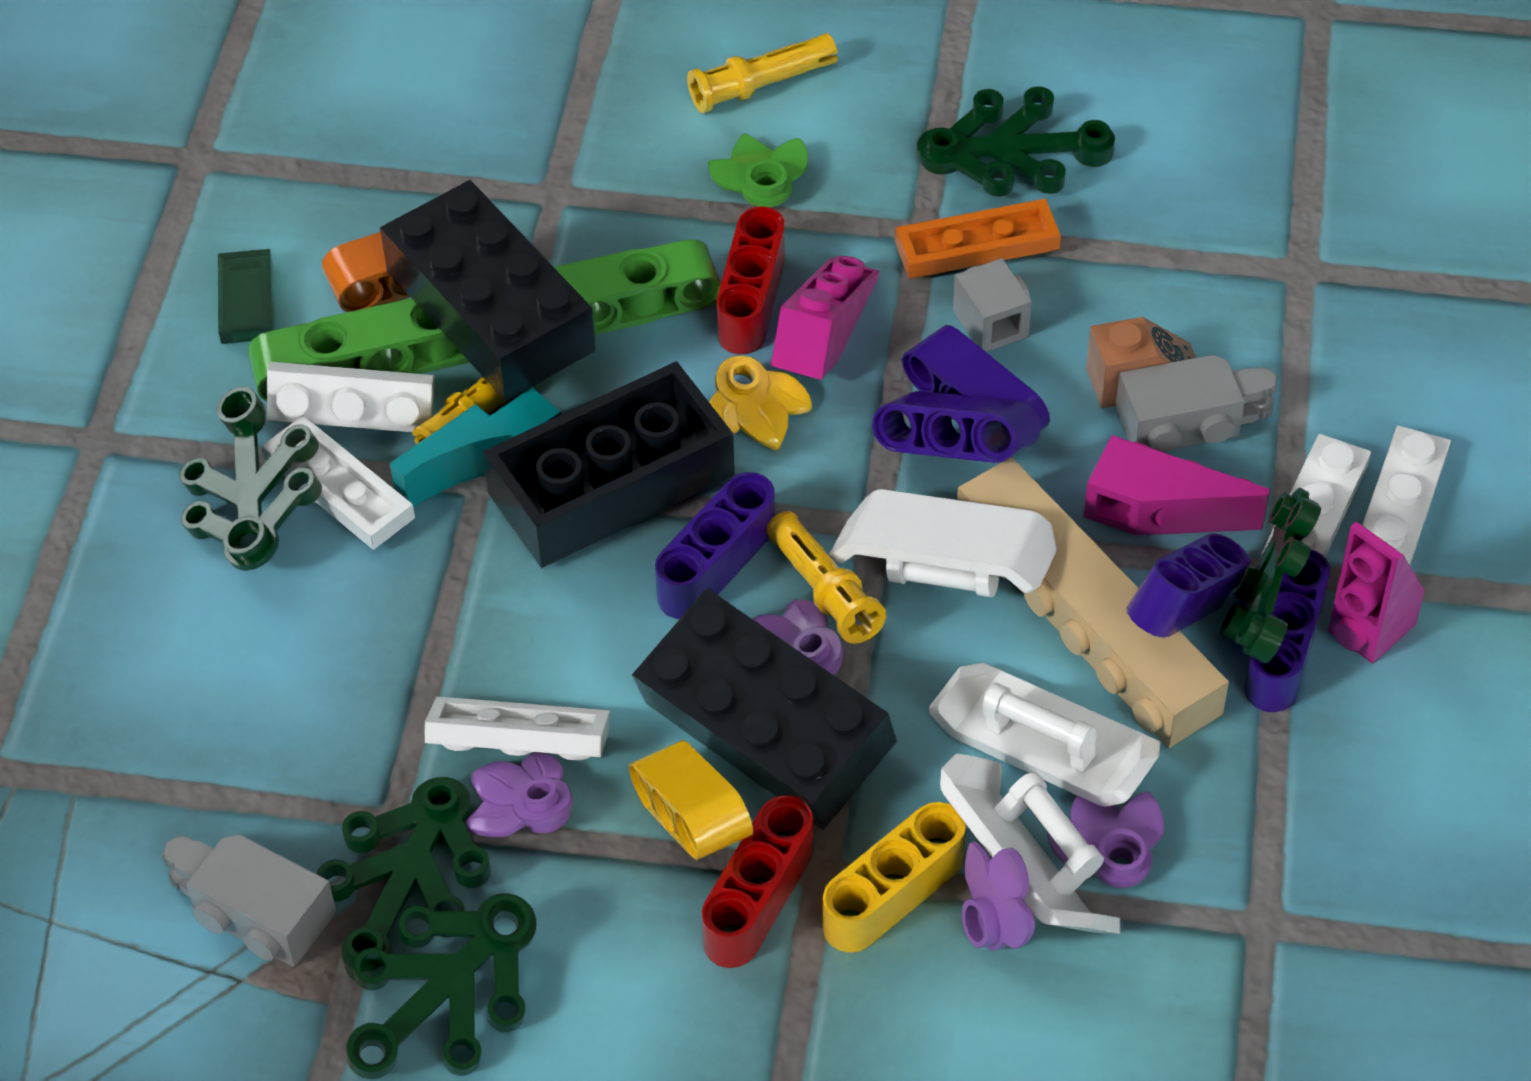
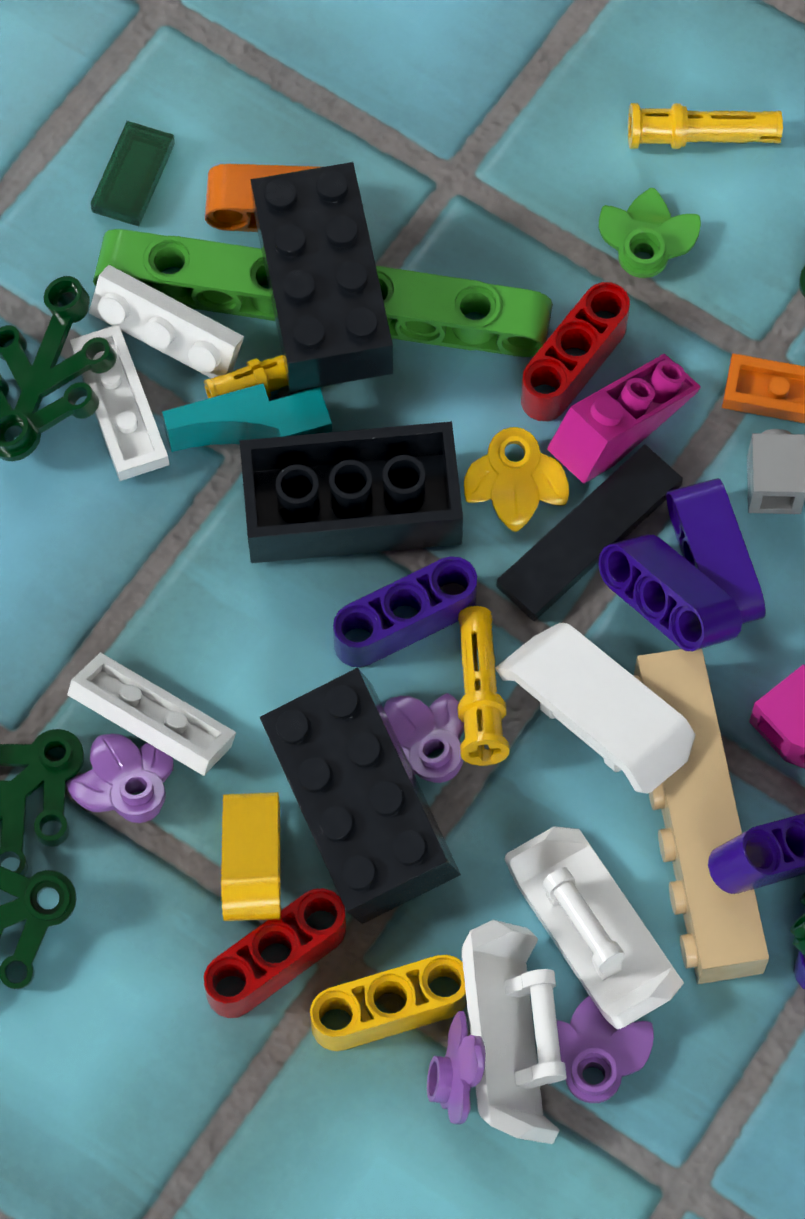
camera: 25 degrees right, 15 degrees up
(846, 421) = (578, 539): none -> black tile

